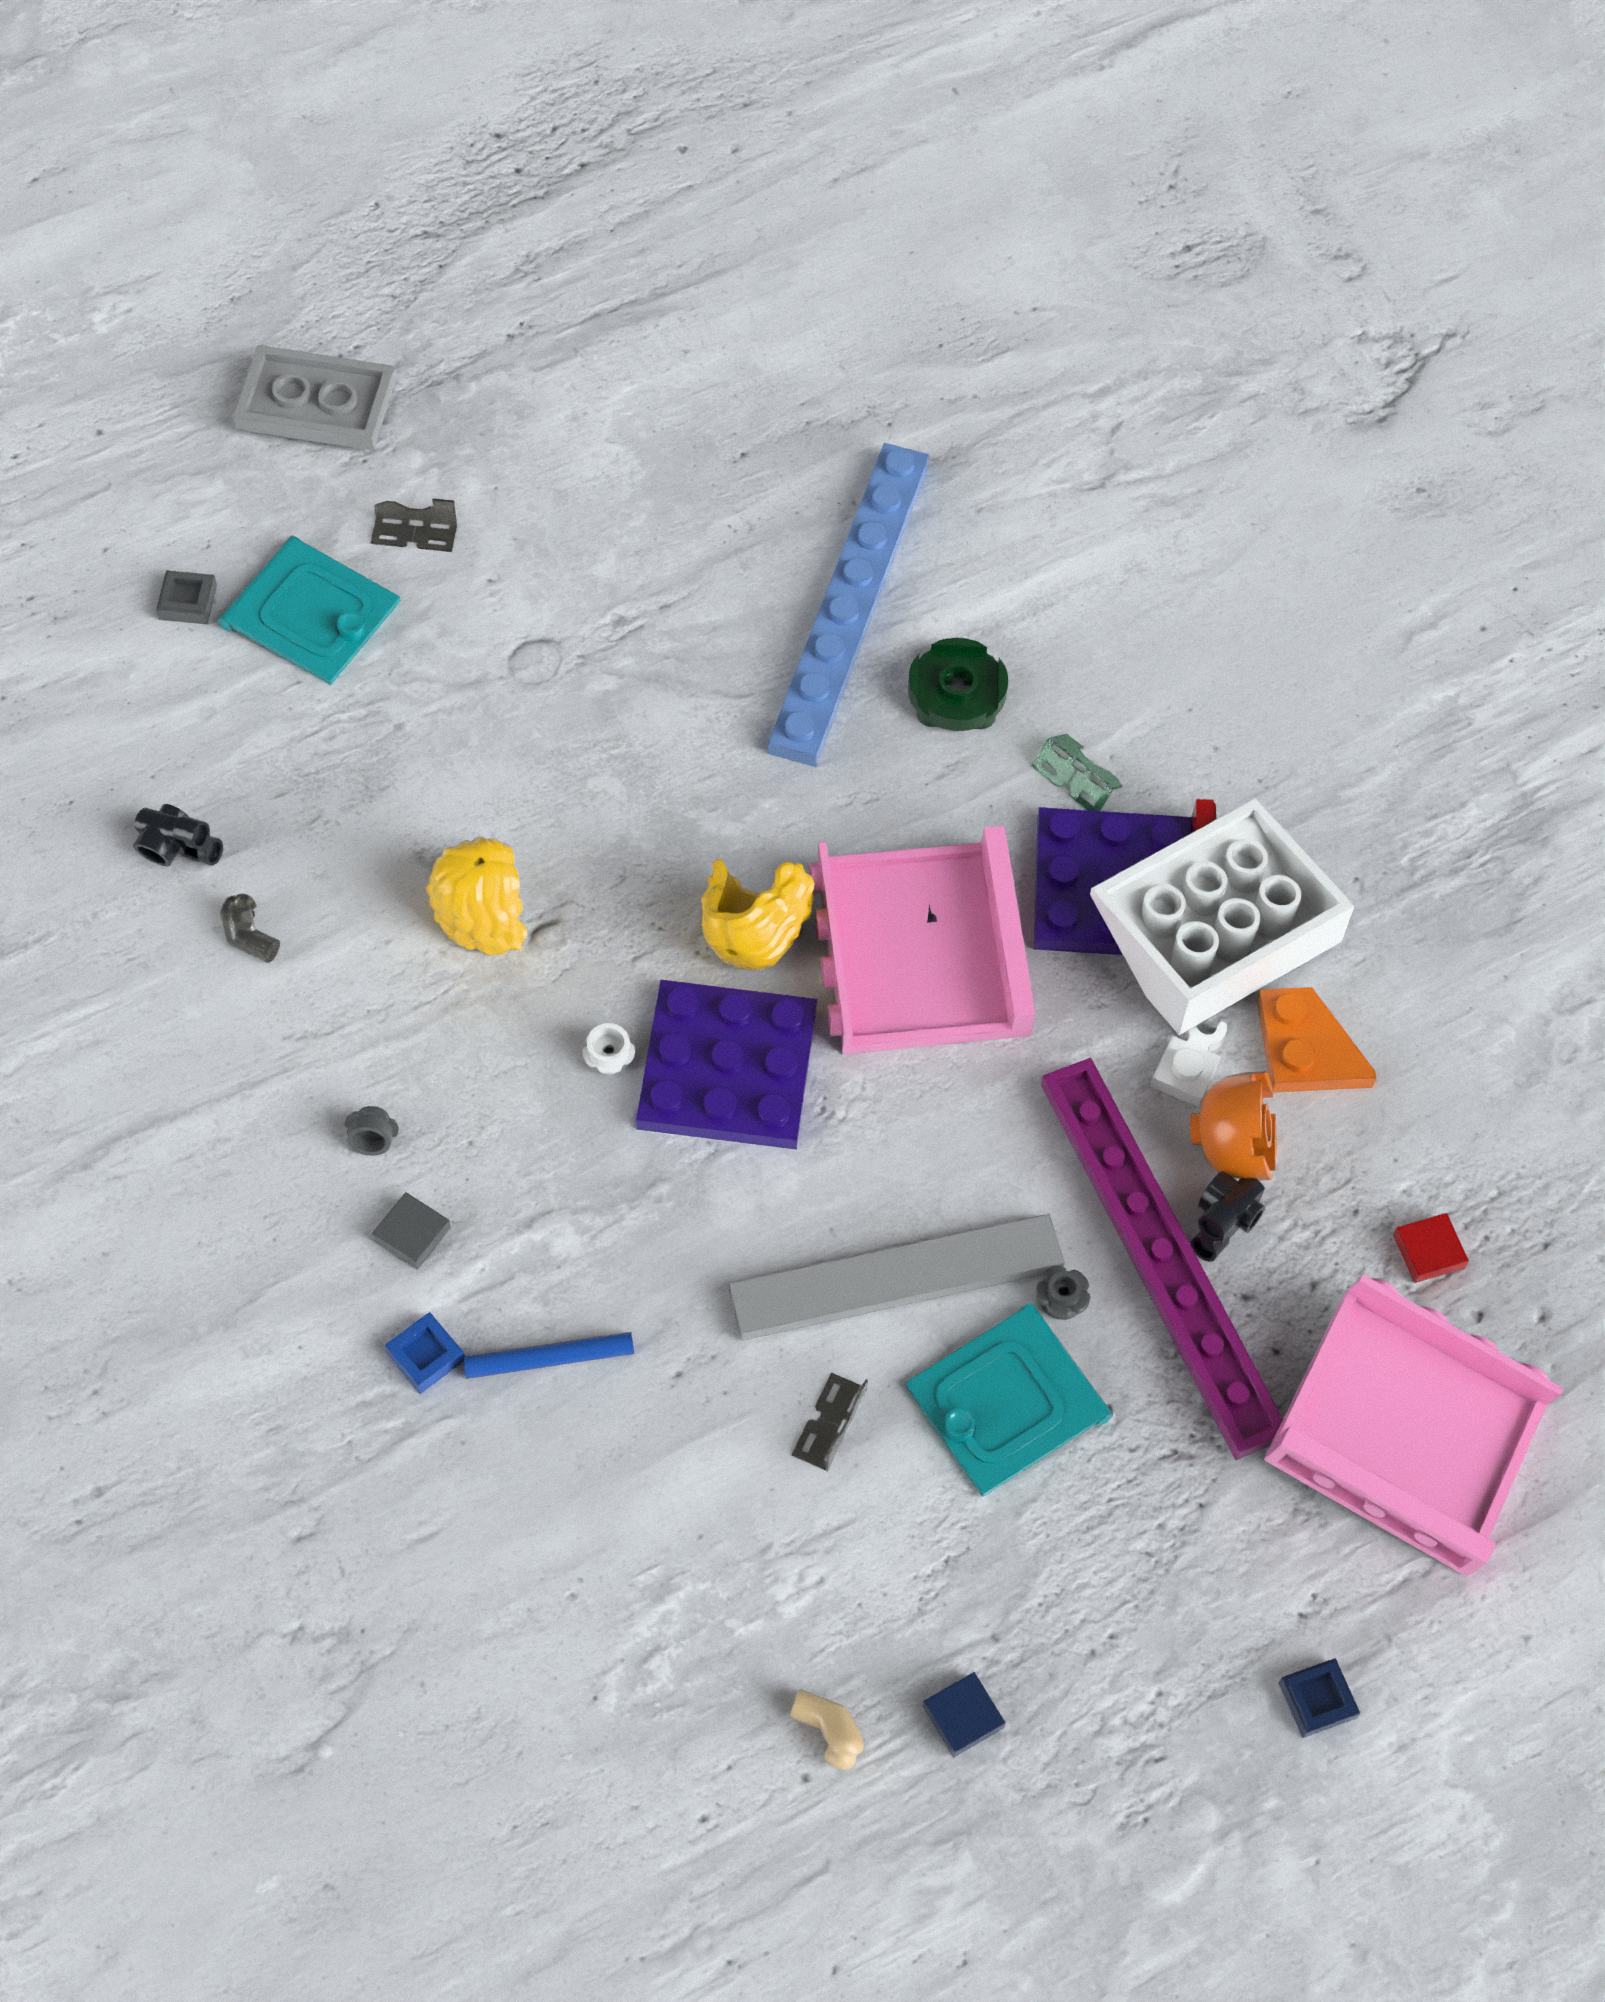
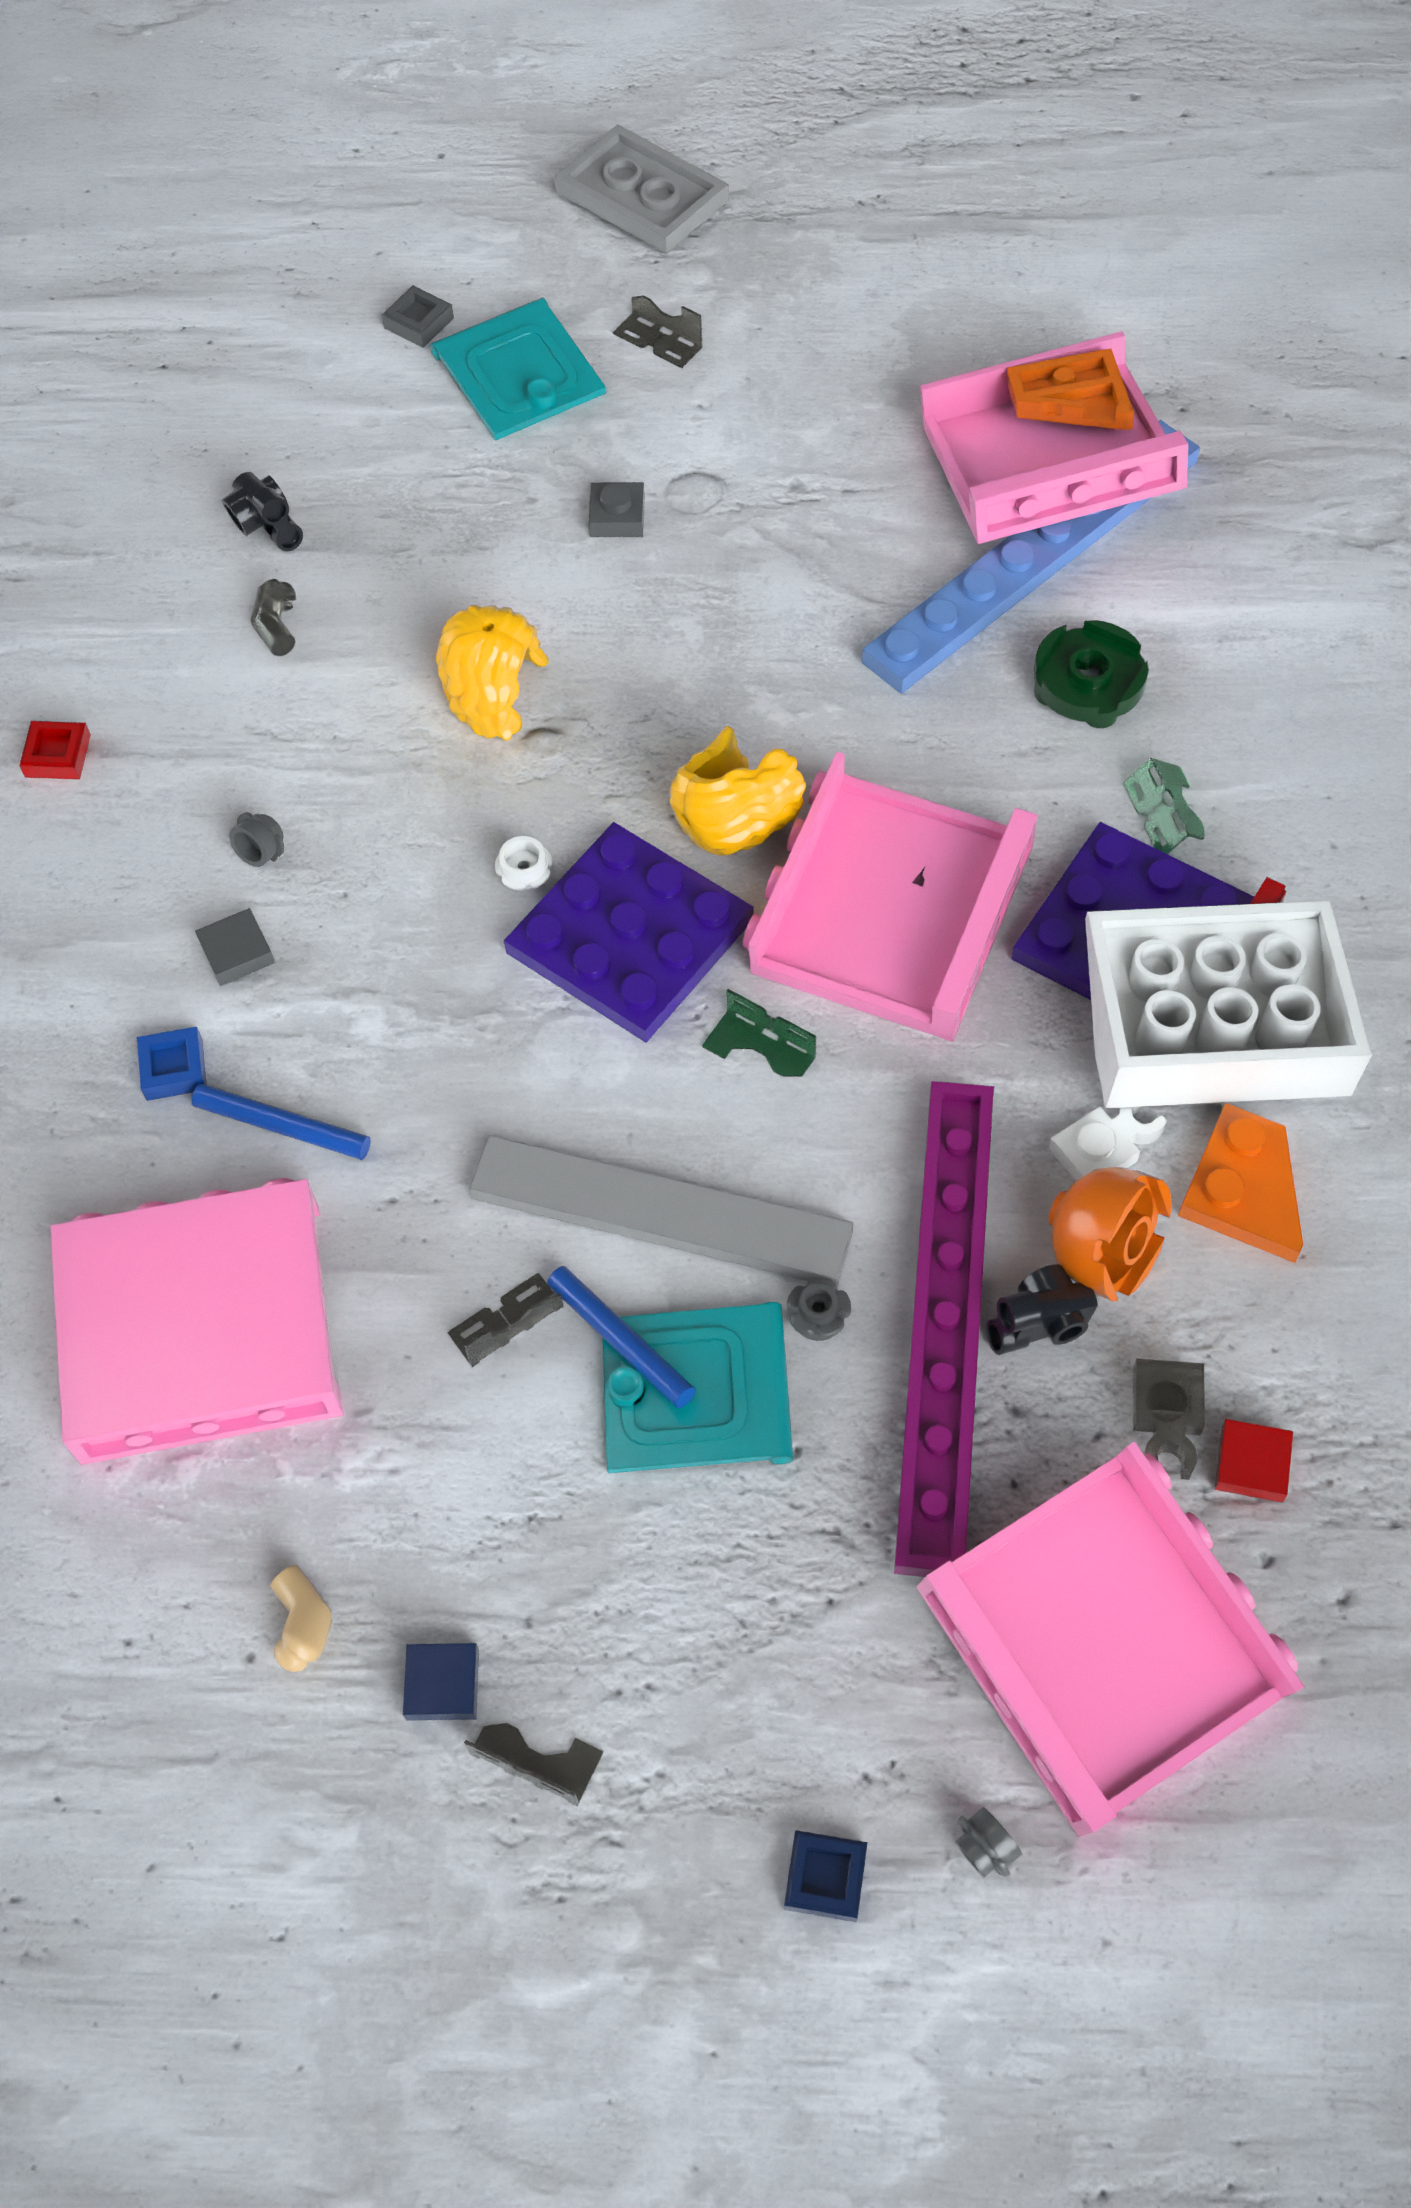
camera: 35 degrees right, 0 degrees up
(130, 1134) = (55, 750): none -> red tile
(483, 705) = (616, 509): none -> dark grey plate
(596, 1543) = (191, 1321): none -> bright pink panel
(812, 450) = (1072, 391): none -> orange wing
(812, 499) = (1037, 472): none -> bright pink panel
(864, 1108) = (738, 1034): none -> clear green piece
(933, 1388) = (621, 1337): none -> blue bar
(1089, 1732) = (559, 1773): none -> clear smoke piece
(1355, 1237) = (1171, 1405): none -> clear smoke plate
(1415, 1613) = (987, 1844): none -> dark grey plate

